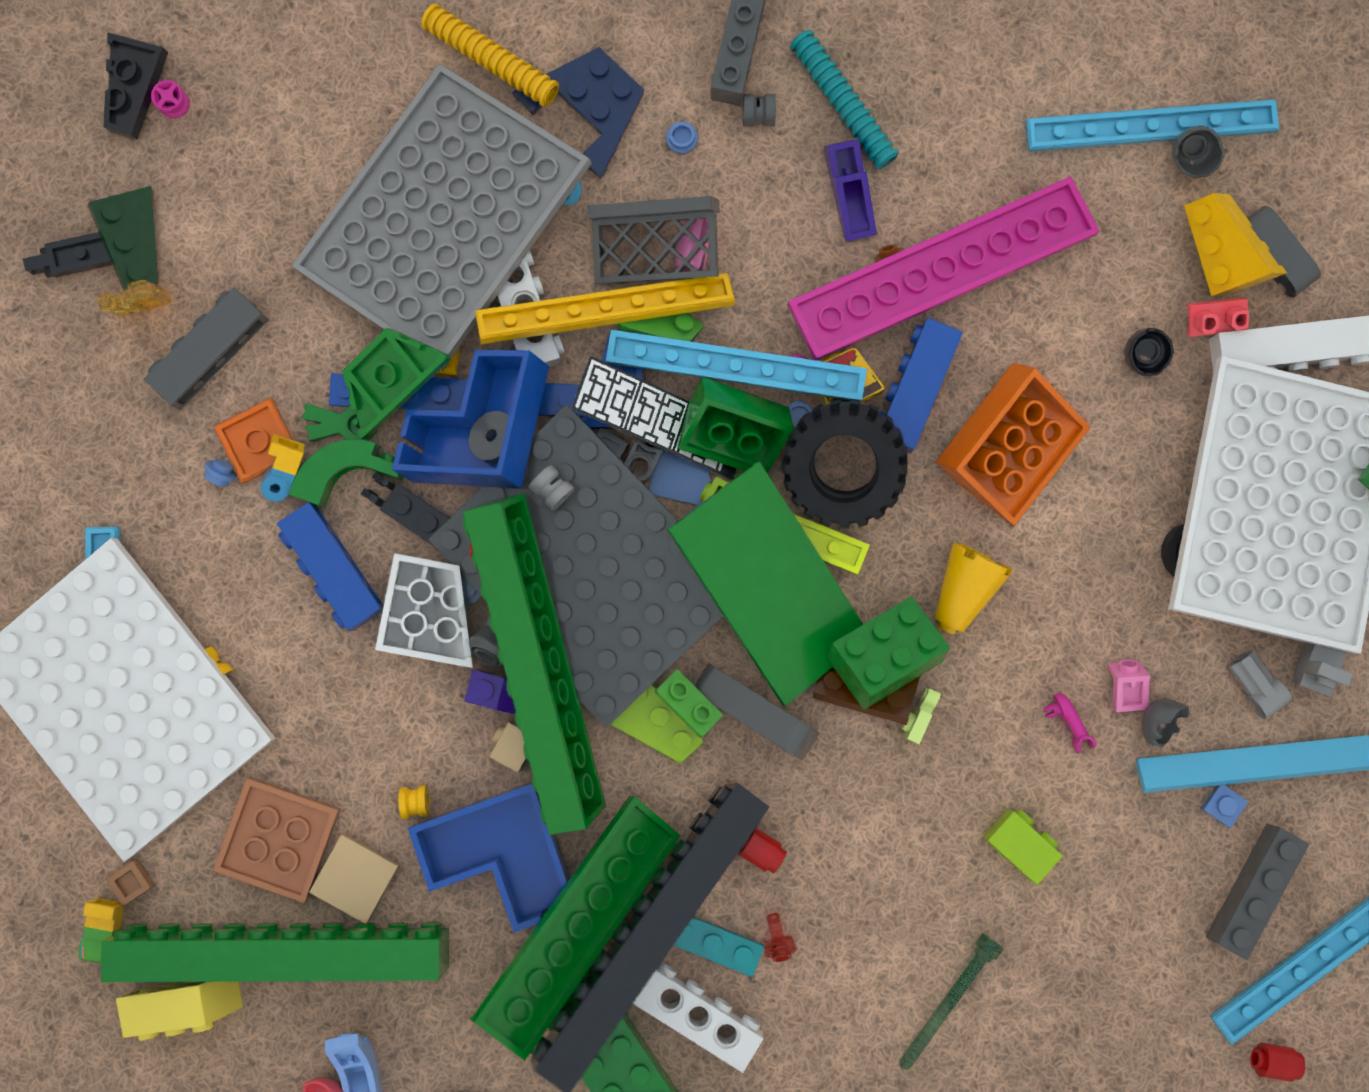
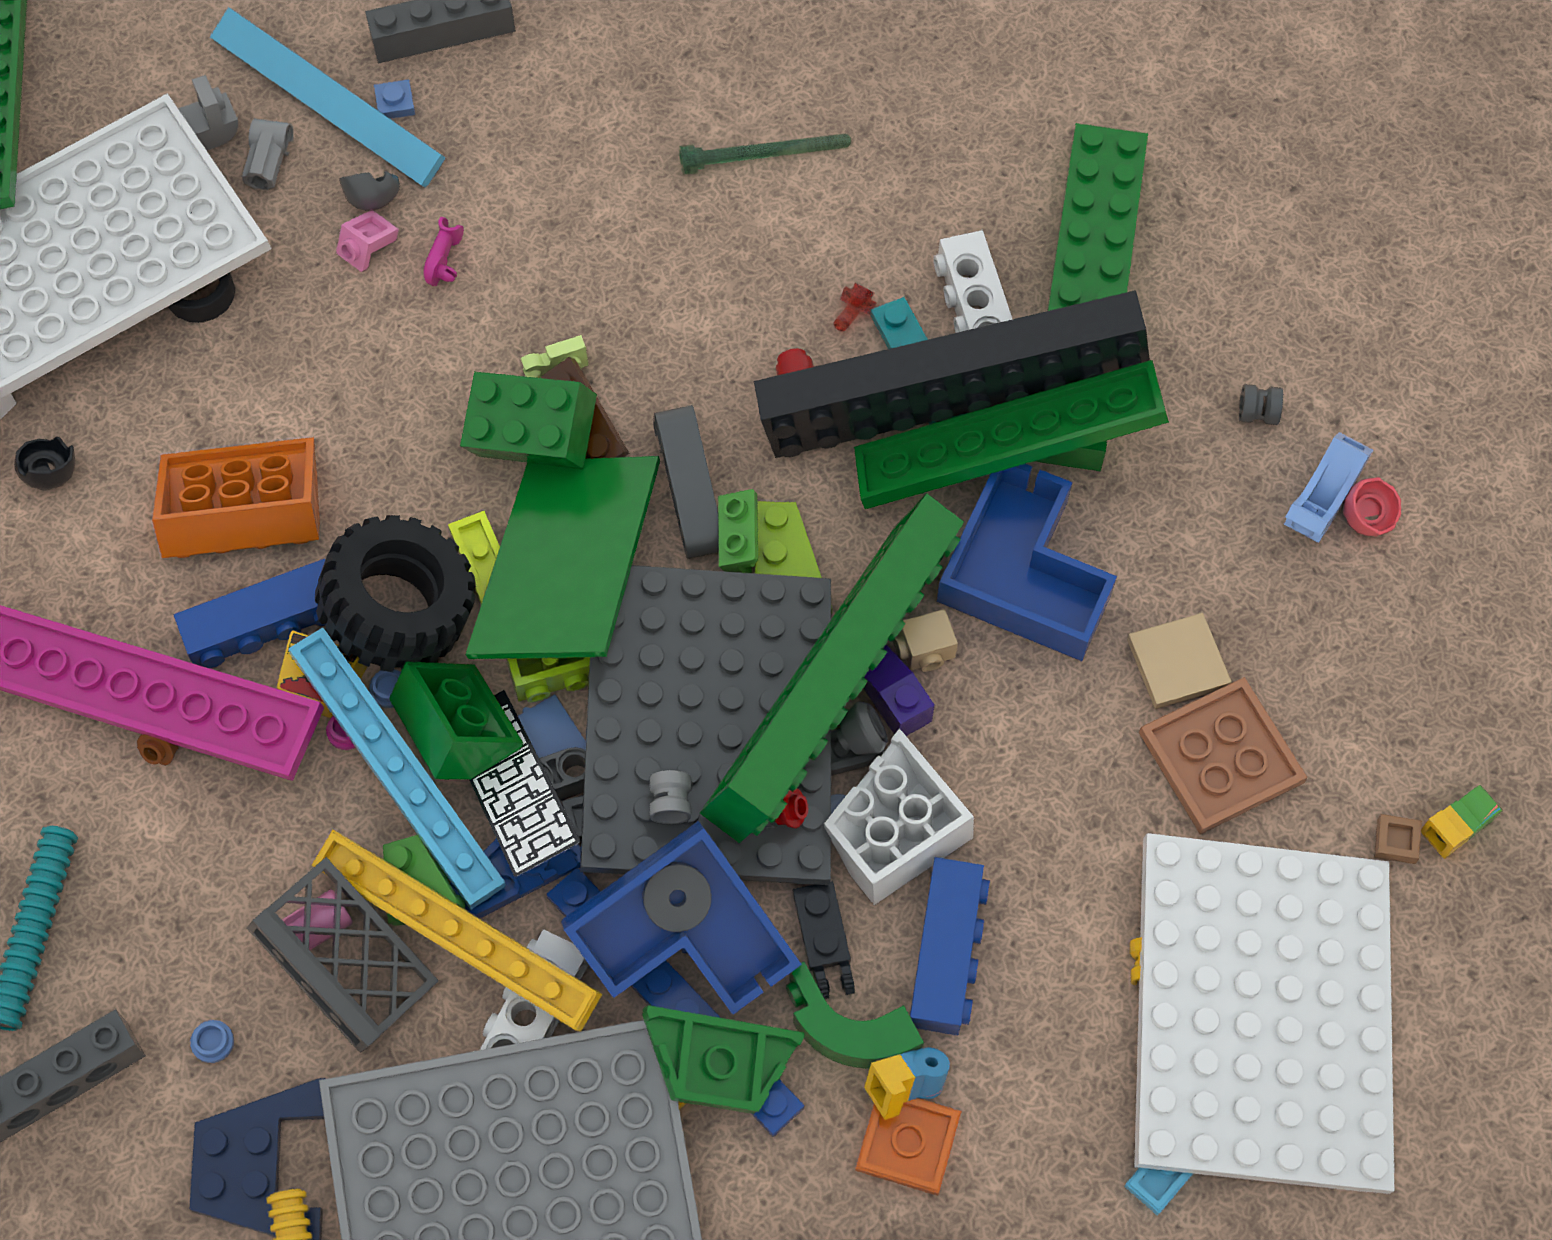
camera: 135 degrees left, 20 degrees down
(176, 1007) = (1441, 688): light yellow wedge -> none
(219, 472) = (973, 1139): medium blue plate -> none
(275, 953) = (1307, 651): green brick -> none
(331, 423) = (805, 1071): green piece -> none
(414, 802) = (1063, 674): yellow wheel -> none
(759, 109) = (113, 989): dark grey wheel -> none
(850, 189) = (118, 841): dark purple slope -> none
(967, 587) = (404, 417): yellow cone -> none
(1022, 846) = (581, 201): lime brick -> none

